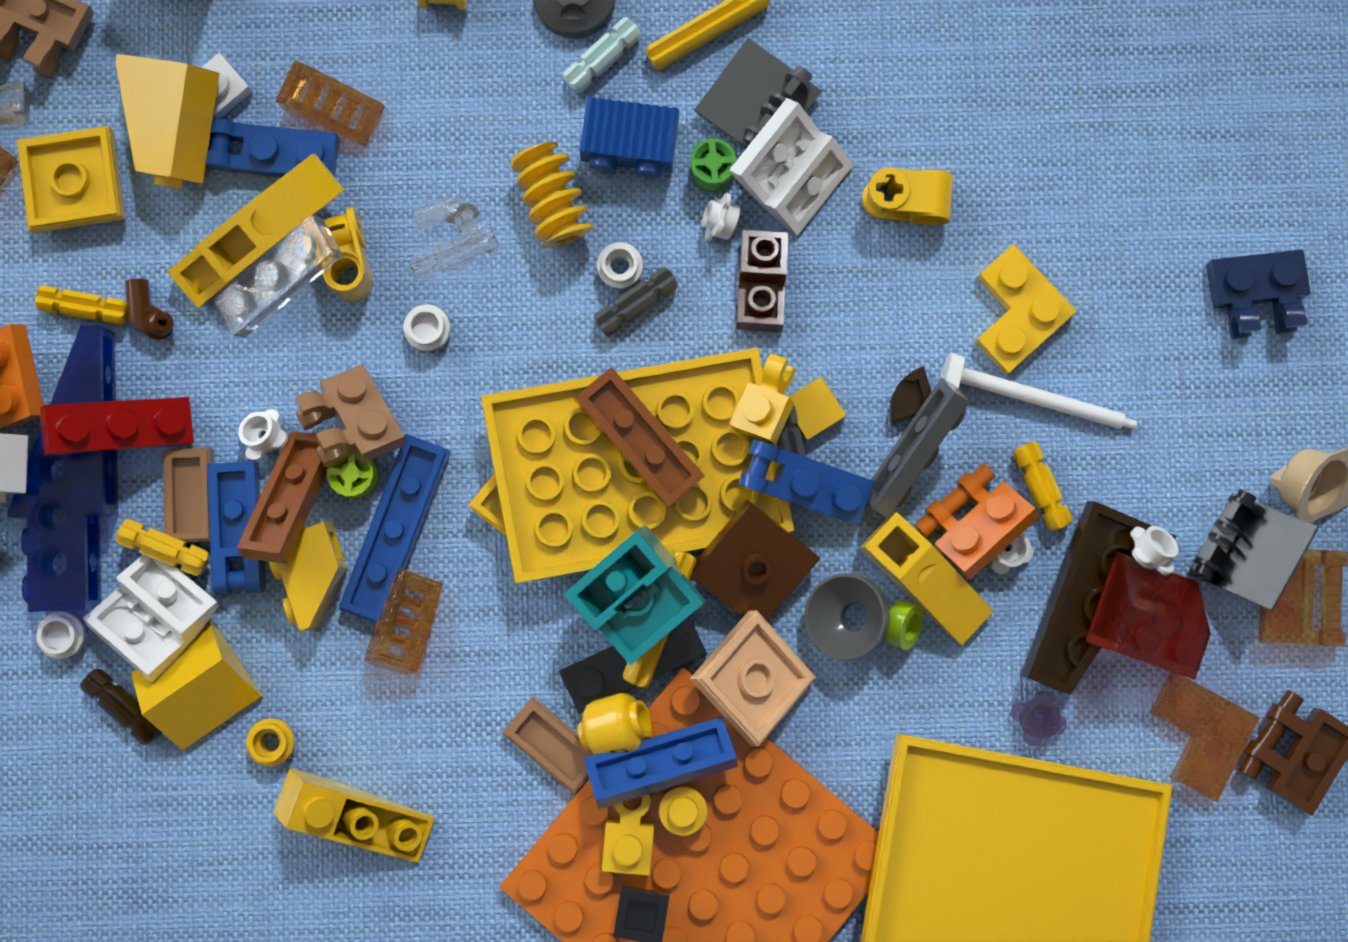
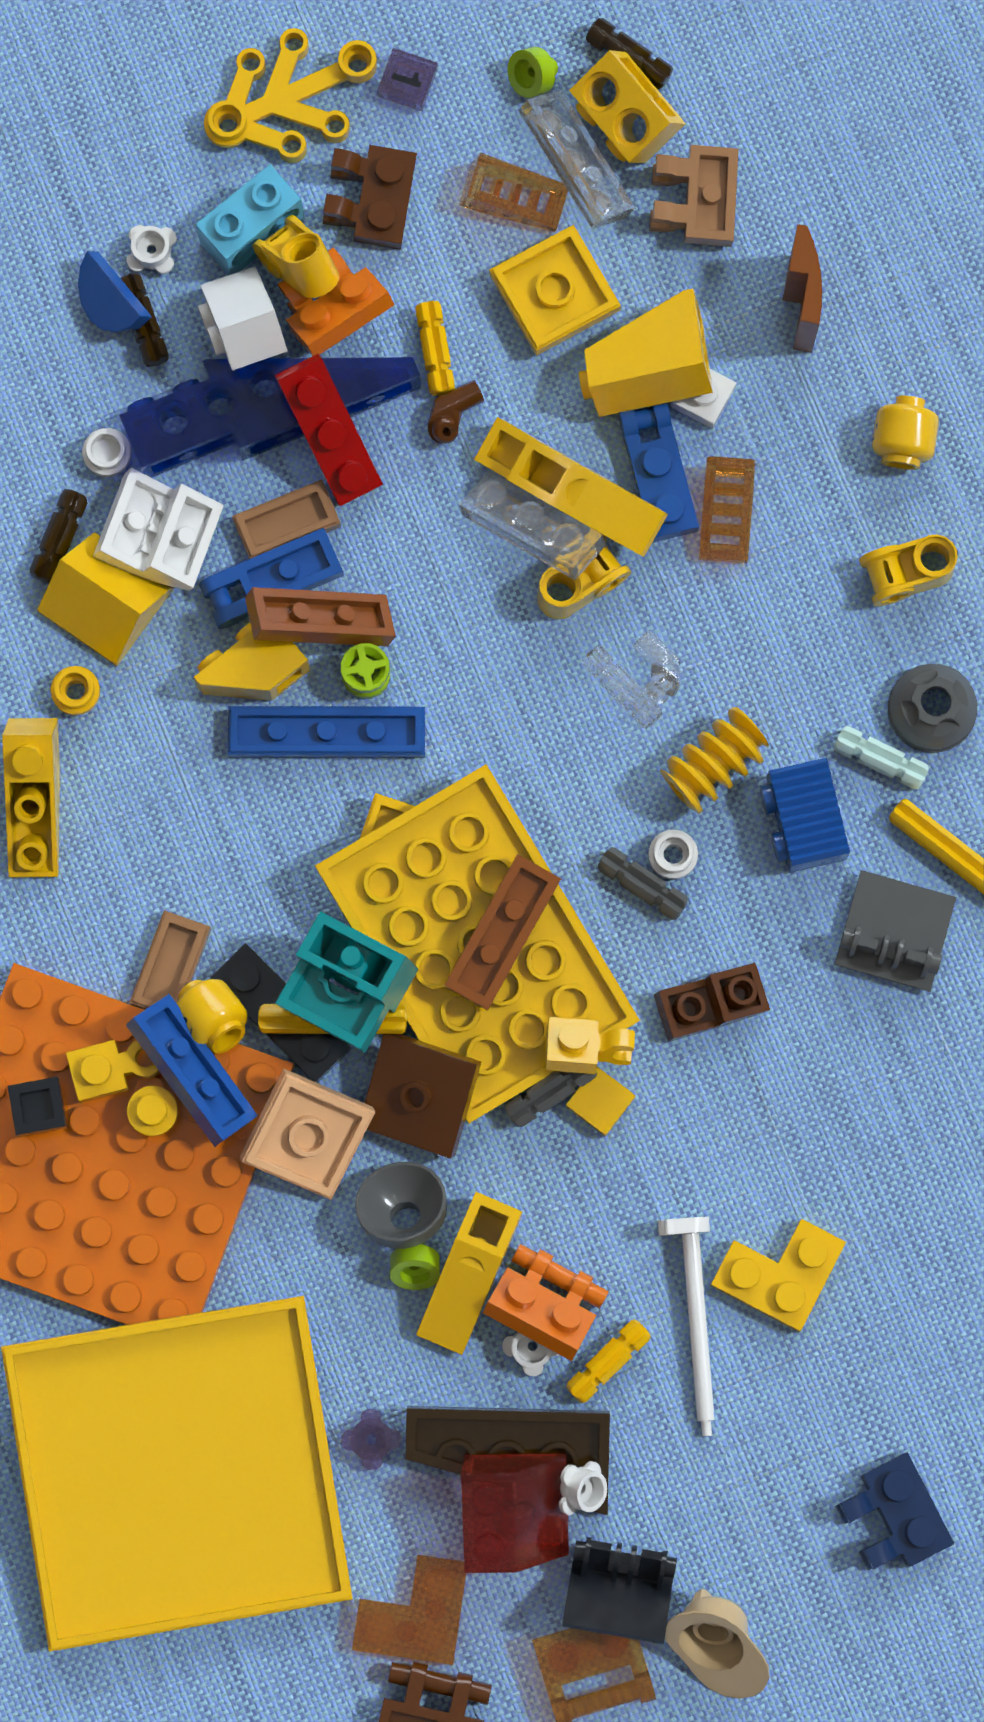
camera: 70 degrees right, 5 degrees down
(162, 547) = (226, 516): yellow axle -> none
(252, 431) = (375, 558): white plate -> none
(361, 413) = (428, 655): medium nougat plate -> none
(389, 617) = (237, 758): clear orange slope -> none
(427, 327) = (538, 688): white plate -> none
(712, 154) = (813, 896): bright green wheel -> none
(720, 218) = (758, 936): white plate -> none
(791, 166) = (836, 987): white slope -> none
(807, 483) = (520, 1117): blue plate -> none
(909, 396) = (649, 1196): dark brown tile -> none
(917, 196) = (856, 1129): yellow piece -> none
(917, 447) = (595, 1212): dark grey plate -> none

